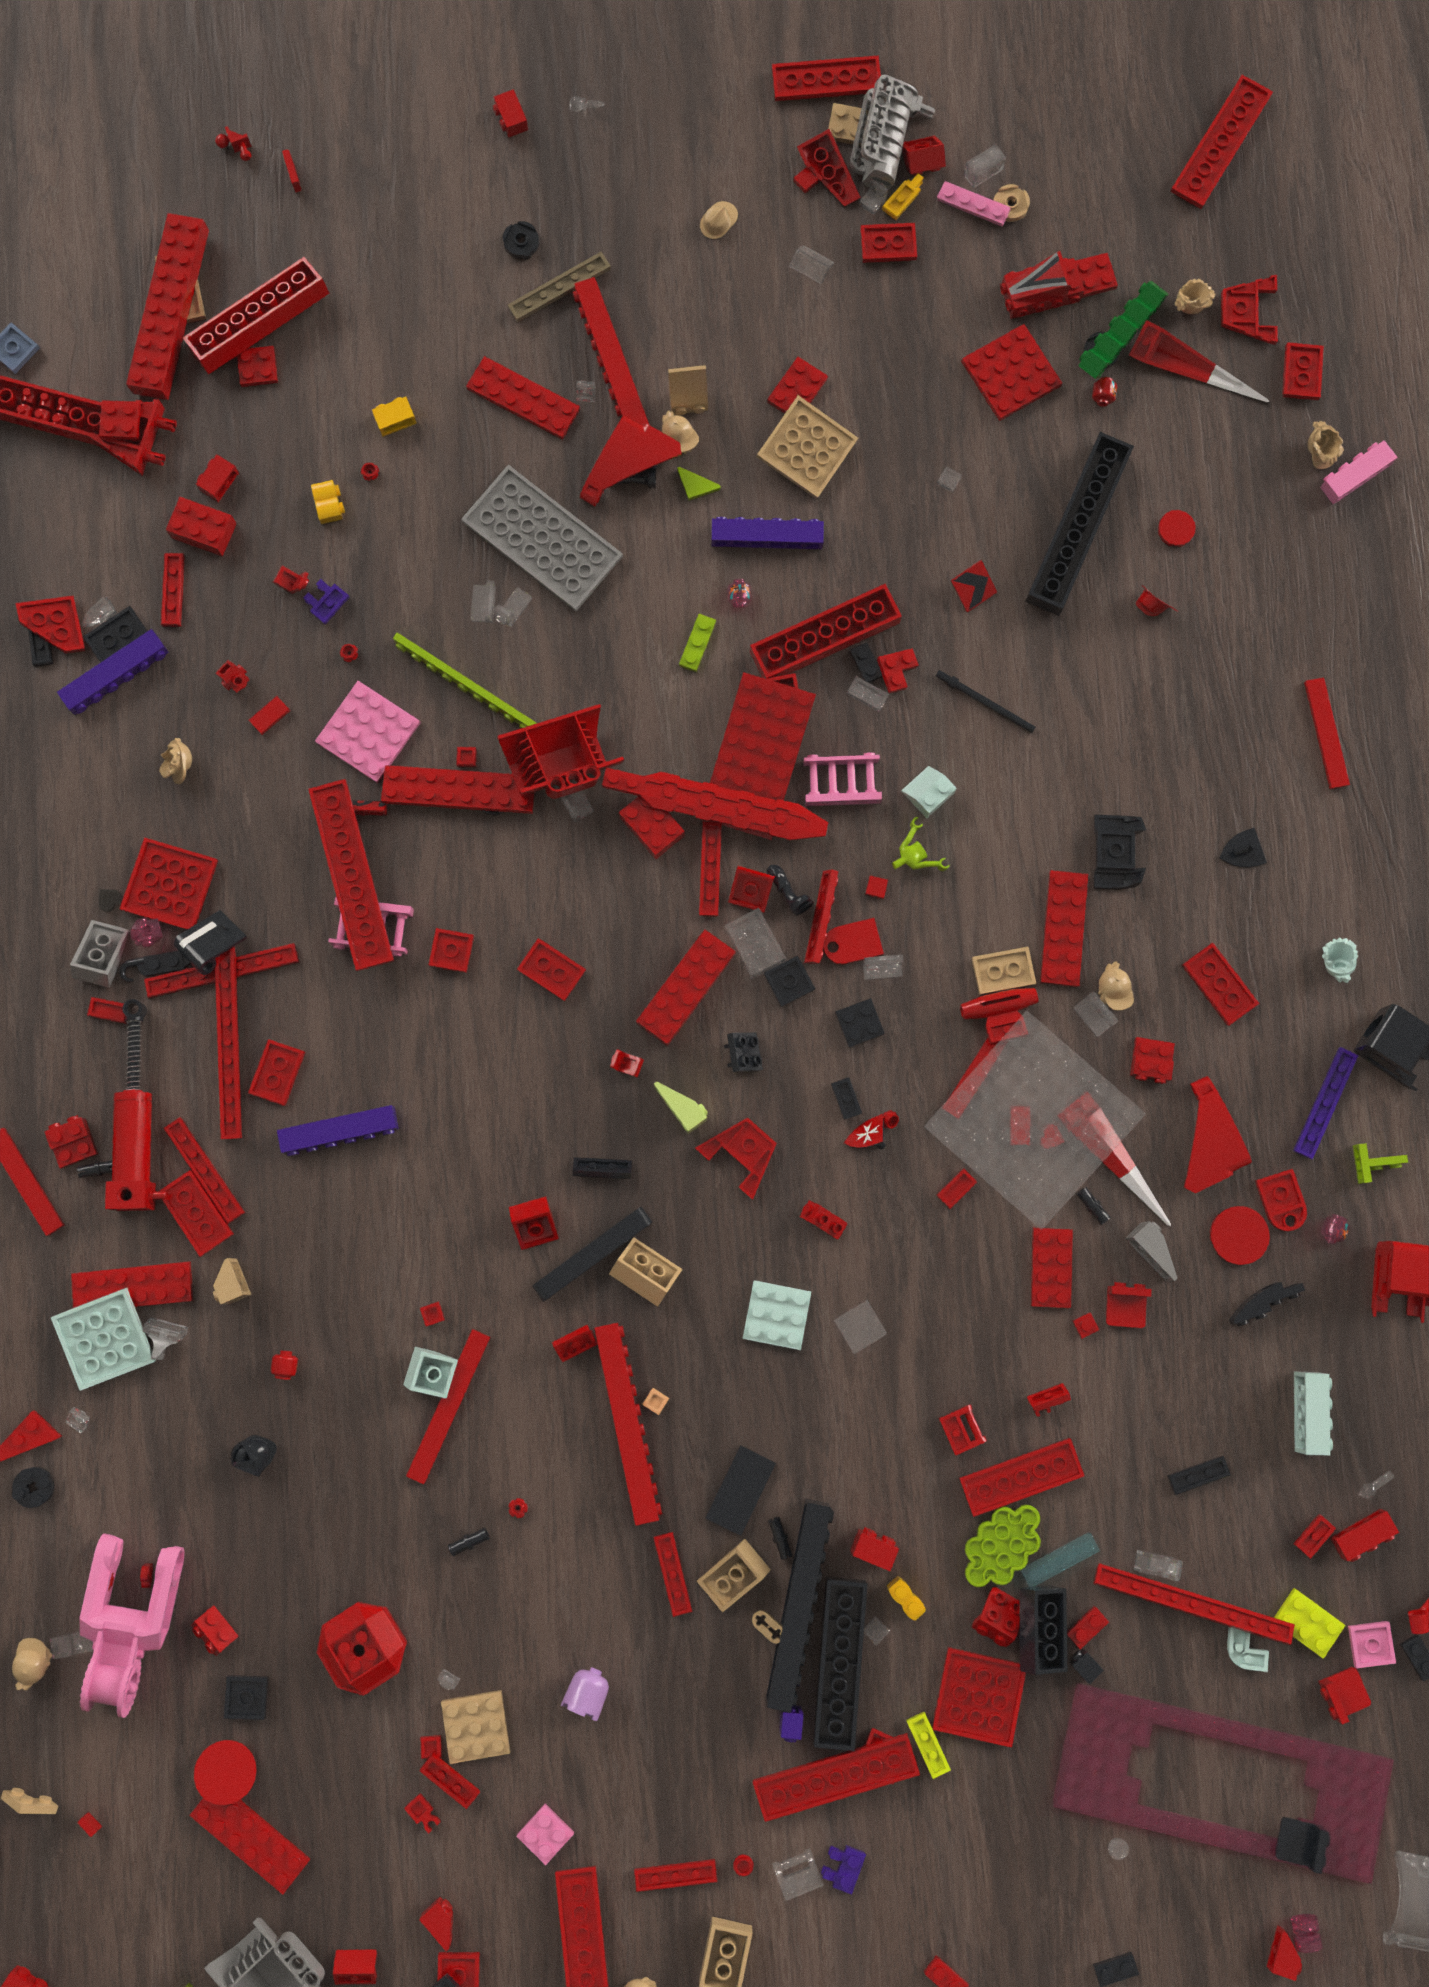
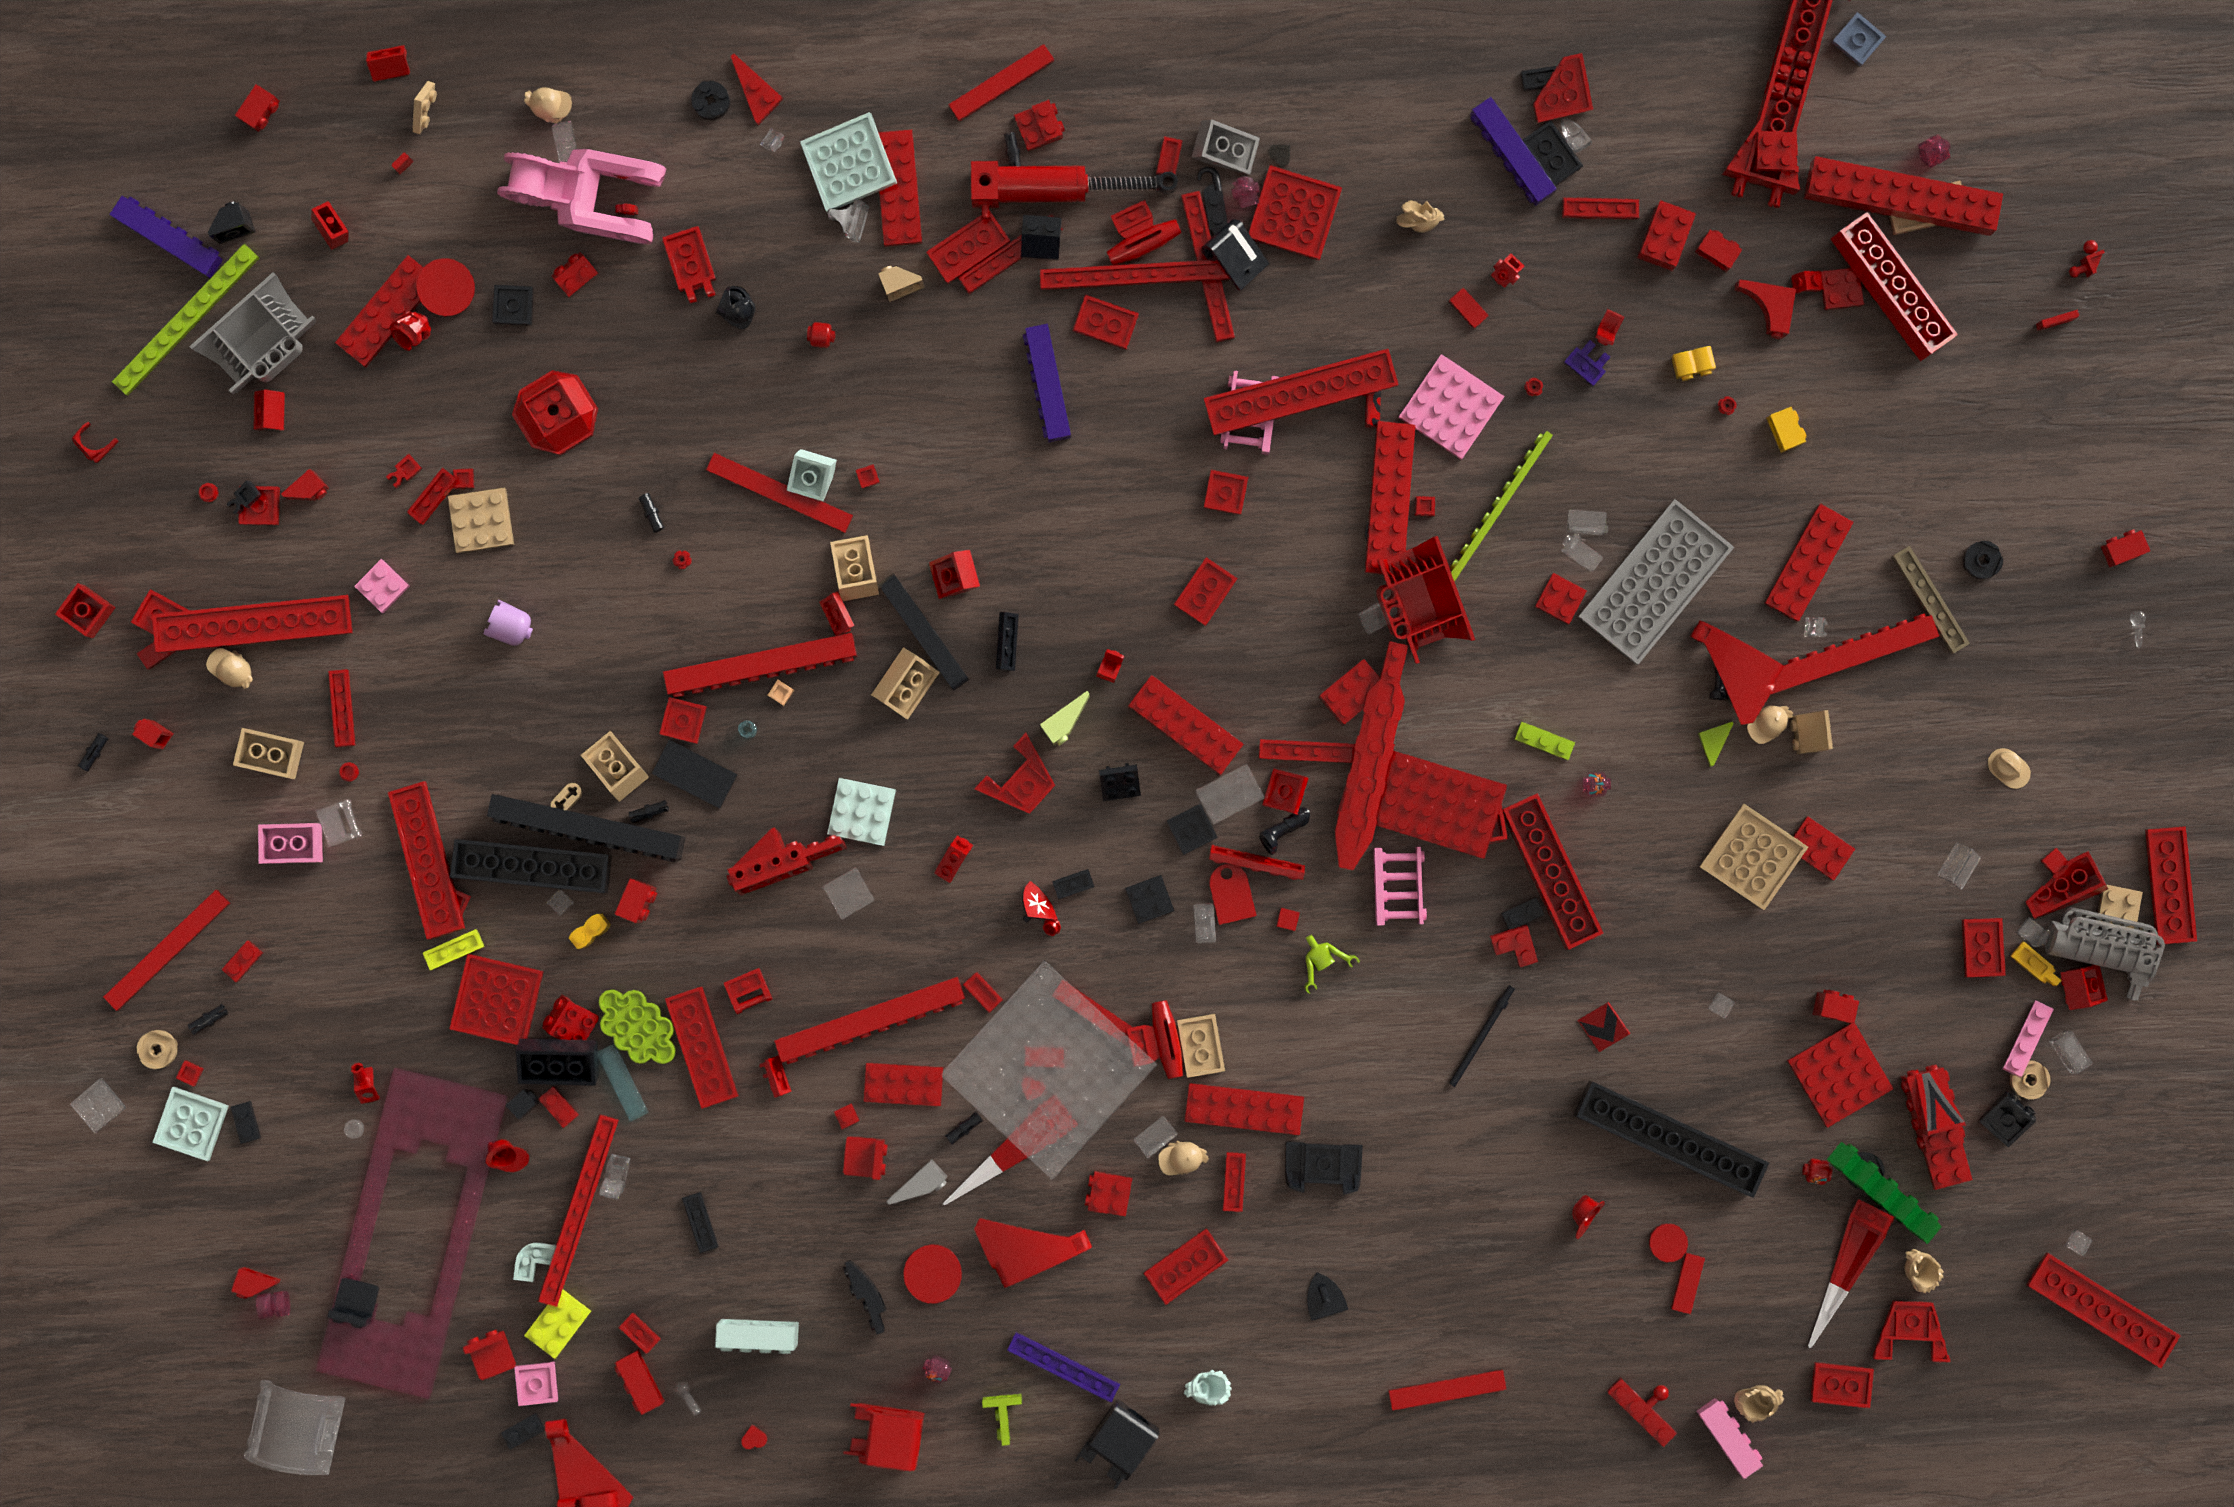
camera: 90 degrees right, 5 degrees up
(124, 279) = (1934, 150): none -> clear pink brick
(154, 1904) = (329, 225): none -> red brick
(186, 1038) = (1140, 234): none -> red plate
(187, 1137) = (1041, 237): none -> black slope
(204, 1505) = (690, 262): none -> red tile
(249, 397) = (1807, 281): none -> red bracket
(269, 426) = (1775, 303): none -> red arch
(270, 1810) = (410, 330): none -> red helmet
(448, 1680) = (524, 493): clear plate -> none
(527, 1326) = (854, 568): none -> tan slope
(558, 627) = (1560, 598): none -> red plate
(672, 1574) = (617, 708): red tile -> none
(685, 1503) = (683, 720): none -> red plate
(697, 1440) = (745, 724): none -> clear light blue bush
(767, 533) = (1660, 813): dark purple brick -> none
(791, 1724) = (476, 818): dark purple brick -> none
(821, 1929) = (290, 843): none -> bright pink brick
(822, 1407) = (772, 862): none -> red wedge
(848, 1869) = (343, 871): dark purple plate -> none
(867, 694) = (1489, 914): clear plate -> none
(929, 791) = (1387, 974): light aqua slope -> none
(948, 374) = (1836, 1007): none -> red brick
(988, 1303) = (870, 1019): none -> red brick
(1048, 221) = (2008, 1118): none -> black plate
(1070, 1839) = (364, 1083): none -> red bracket
(1136, 937) = (1234, 1181): none -> red plate
(1141, 1683) = (505, 1156): none -> red piece
(1160, 162) = (2078, 1242): none -> clear tile
(1214, 510) = (1687, 1283): none -> red tile
(1281, 1198) = (968, 1318): red tile -> none
(1336, 552) = (1643, 1411): none -> red plate
(1413, 1415) = (754, 1438): none -> red tile

